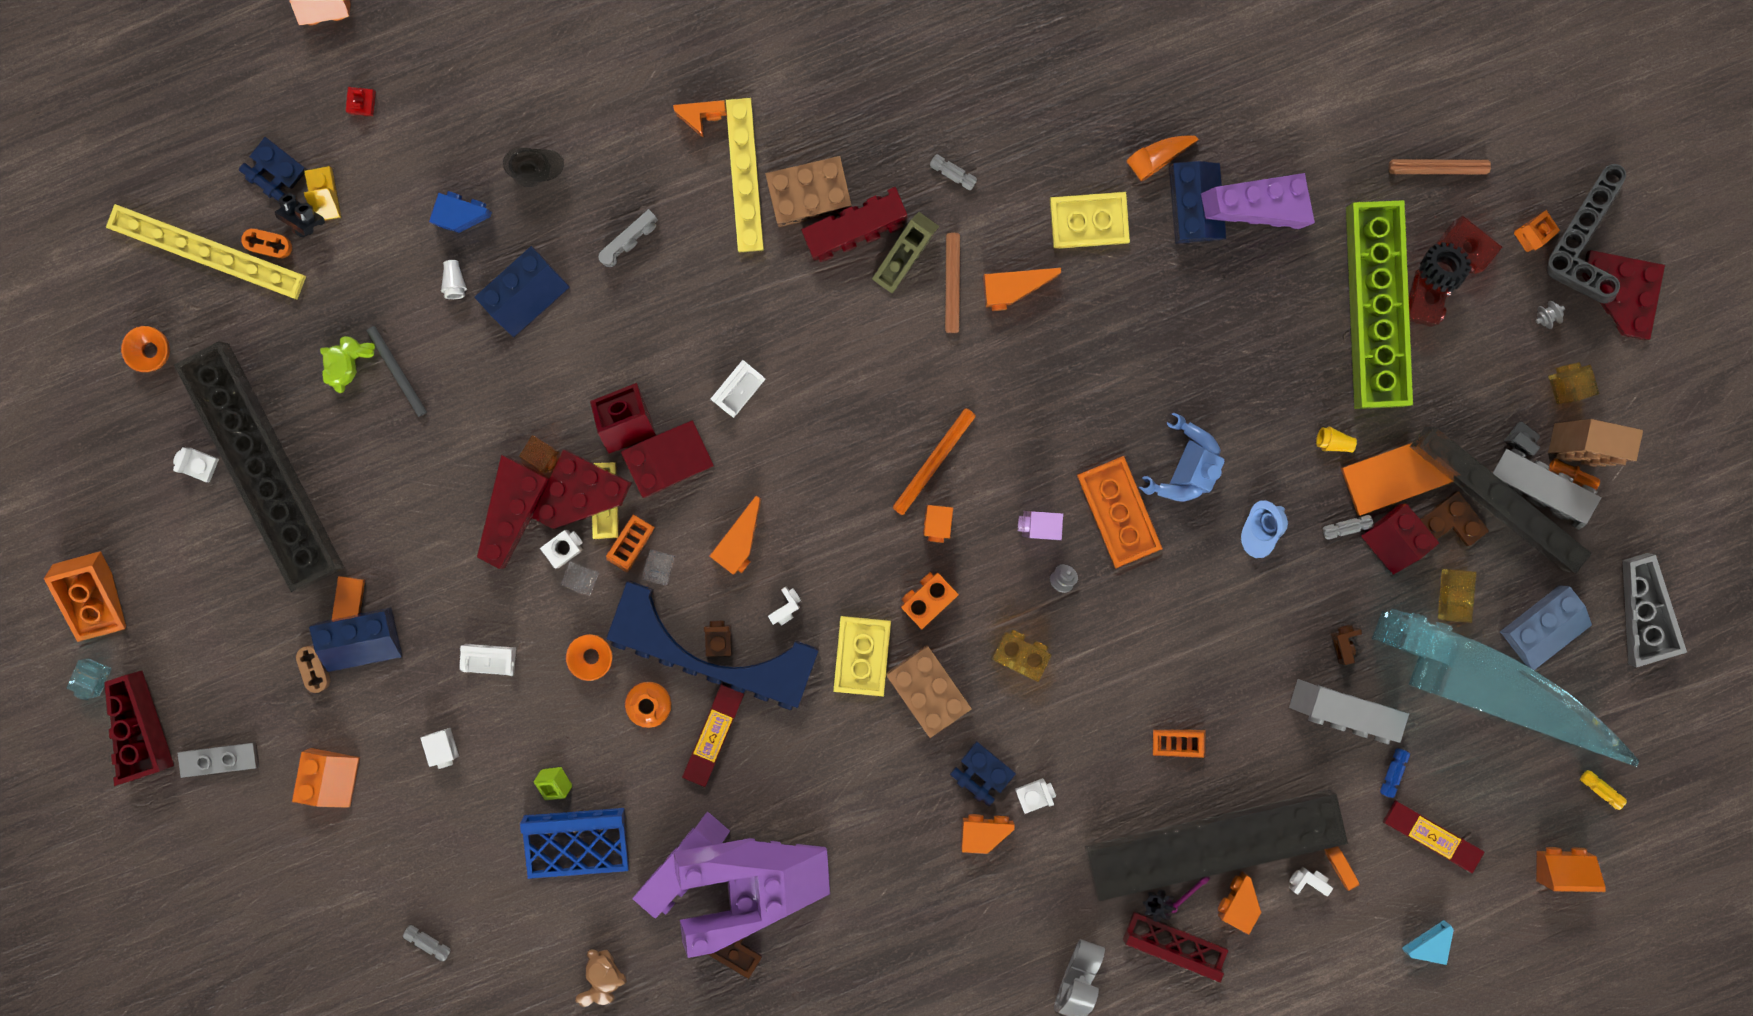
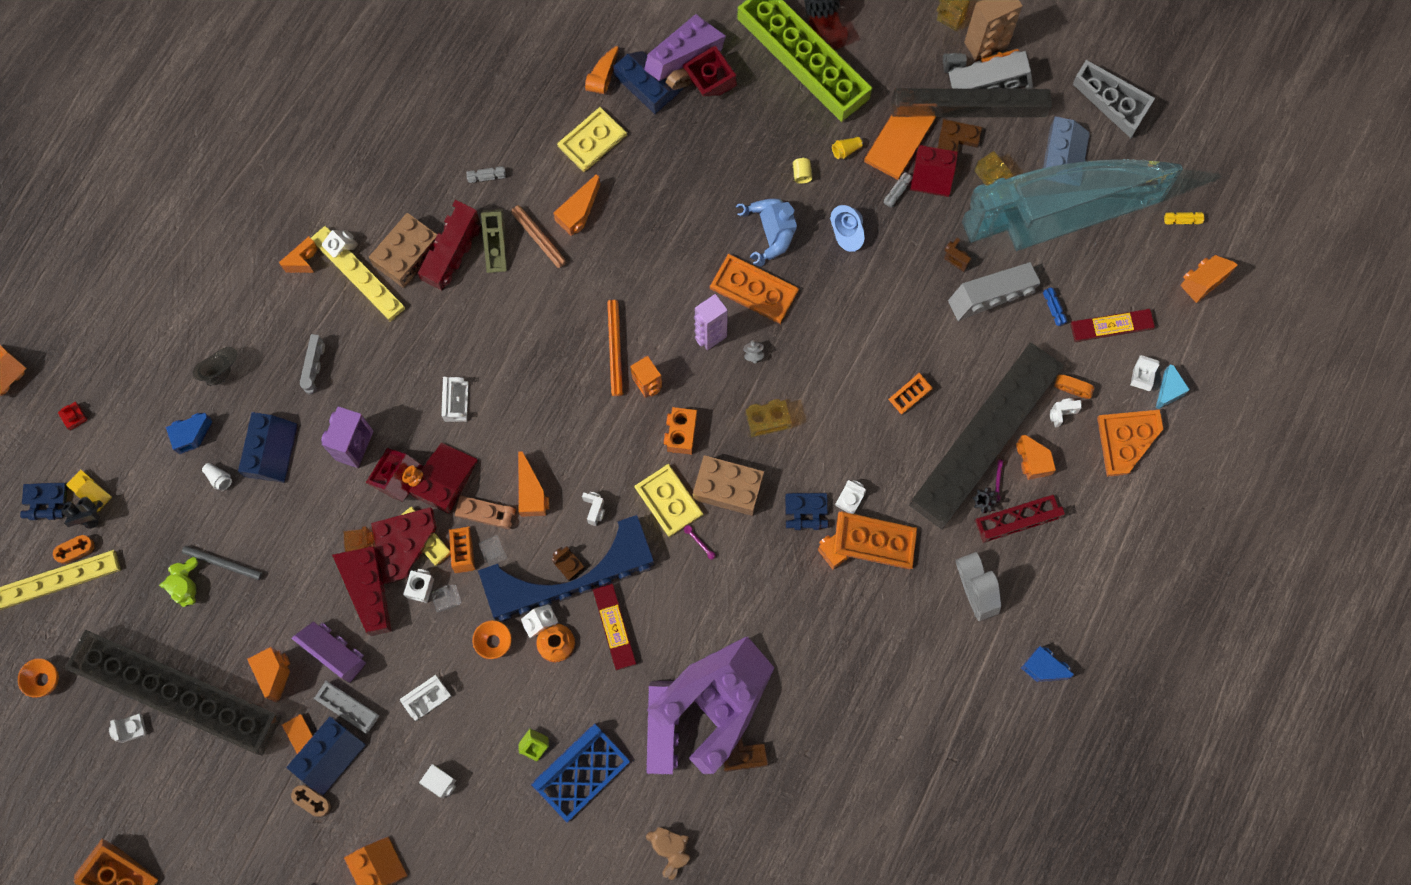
camera: 40 degrees left, 15 degrees down
(361, 522) = (271, 672): none -> orange slope
(409, 608) = (346, 707): none -> light grey plate
(431, 545) = (330, 650): none -> medium lavender slope
(601, 350) = (347, 437): none -> medium lavender brick
(635, 440) = (412, 476): none -> orange bush
(647, 674) = (538, 620): none -> white bracket
(679, 524) = (484, 512): none -> nougat plate
(750, 129) = (337, 241): none -> white bracket
(857, 699) = (688, 530): none -> magenta hinge
(1021, 858) = (875, 540): none -> orange tile
(1231, 230) = (678, 79): none -> medium nougat beam
(1265, 250) = (711, 73): none -> dark red slope
(1270, 429) = (802, 170): none -> light yellow beam
(1346, 957) = (1127, 438): none -> orange plate
(1419, 910) = (1144, 373): none -> white bracket

